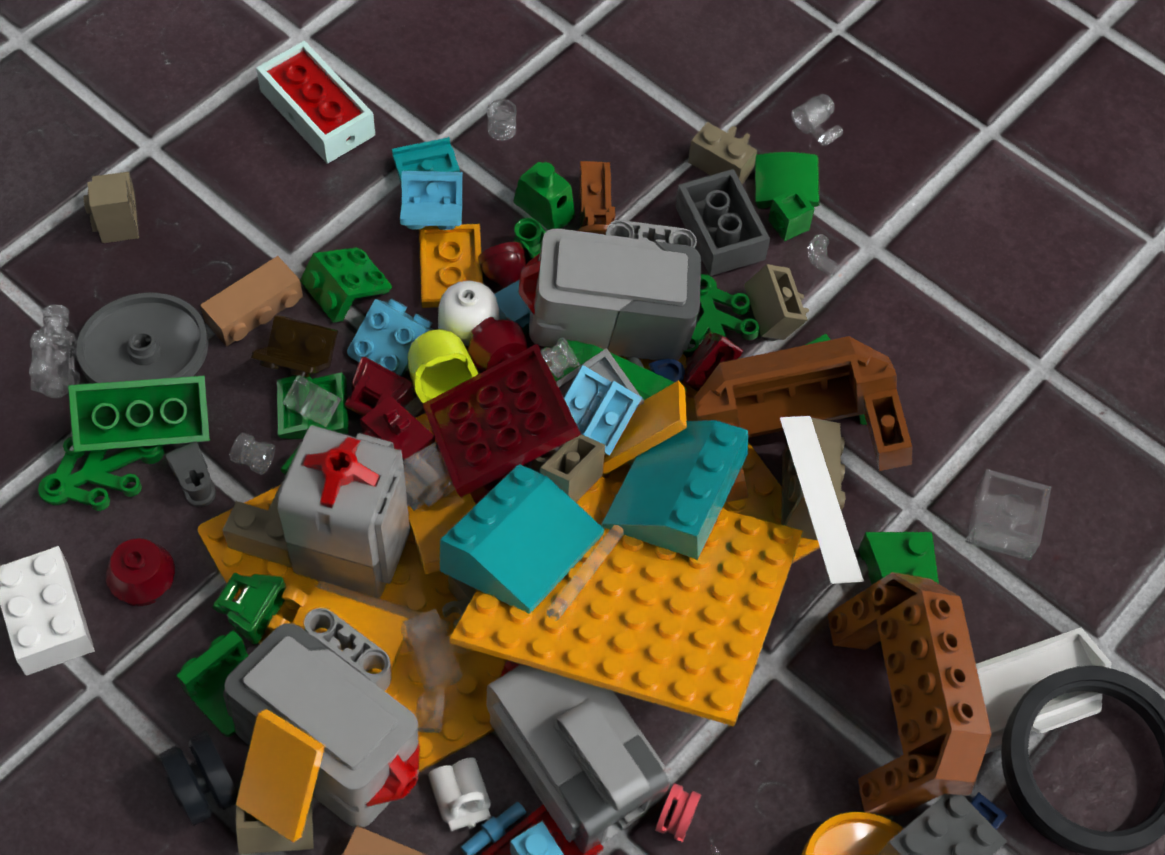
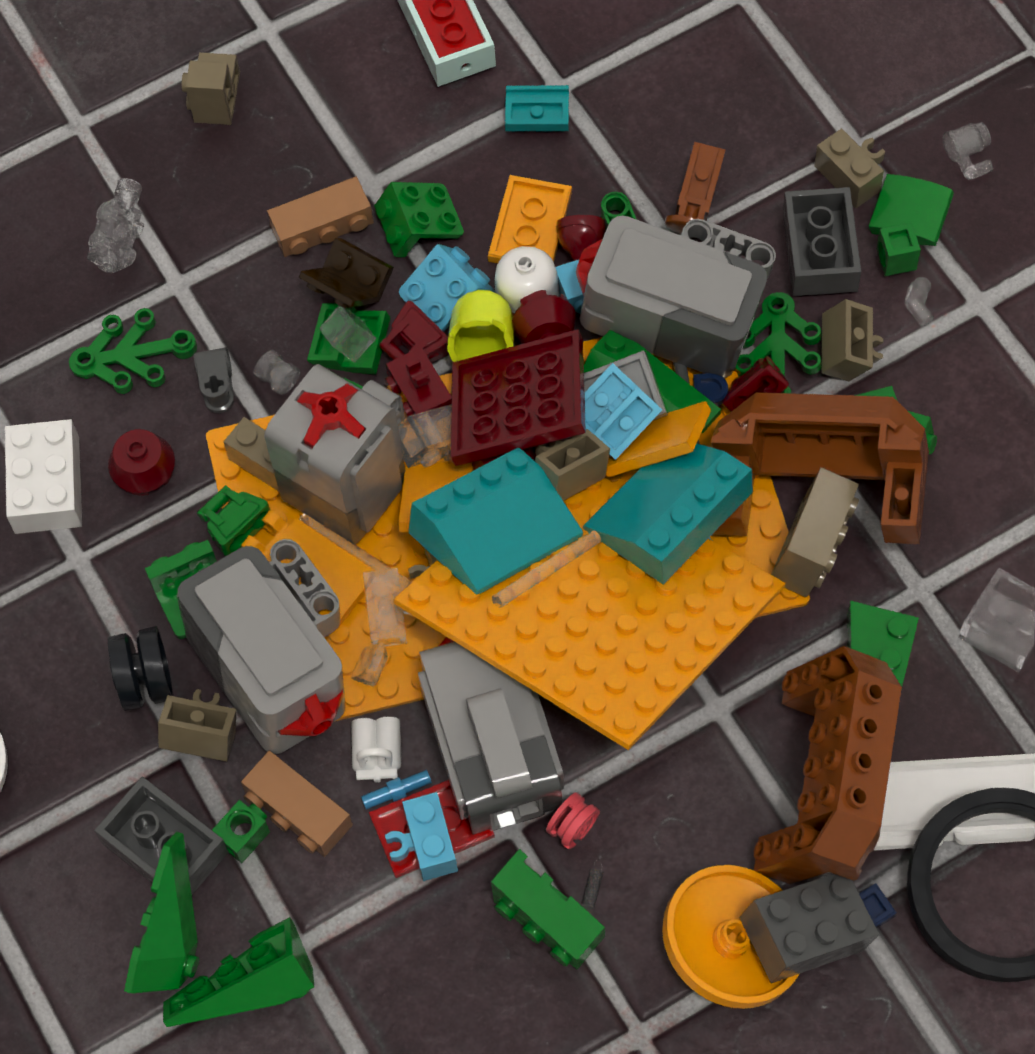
camera: 25 degrees right, 5 degrees up
(138, 413) = (178, 307): green slope -> none
(142, 340) = (202, 239): dark grey dish -> none
(280, 775) = (205, 684): light orange tile -> none
(431, 199) = (528, 150): medium azure bracket -> none
(501, 119) = (629, 77): clear wheel -> none
(545, 196) = (641, 166): green torso -> none
(560, 357) = (595, 349): clear wheel -> none
(821, 500) = (806, 556): white sticker -> none

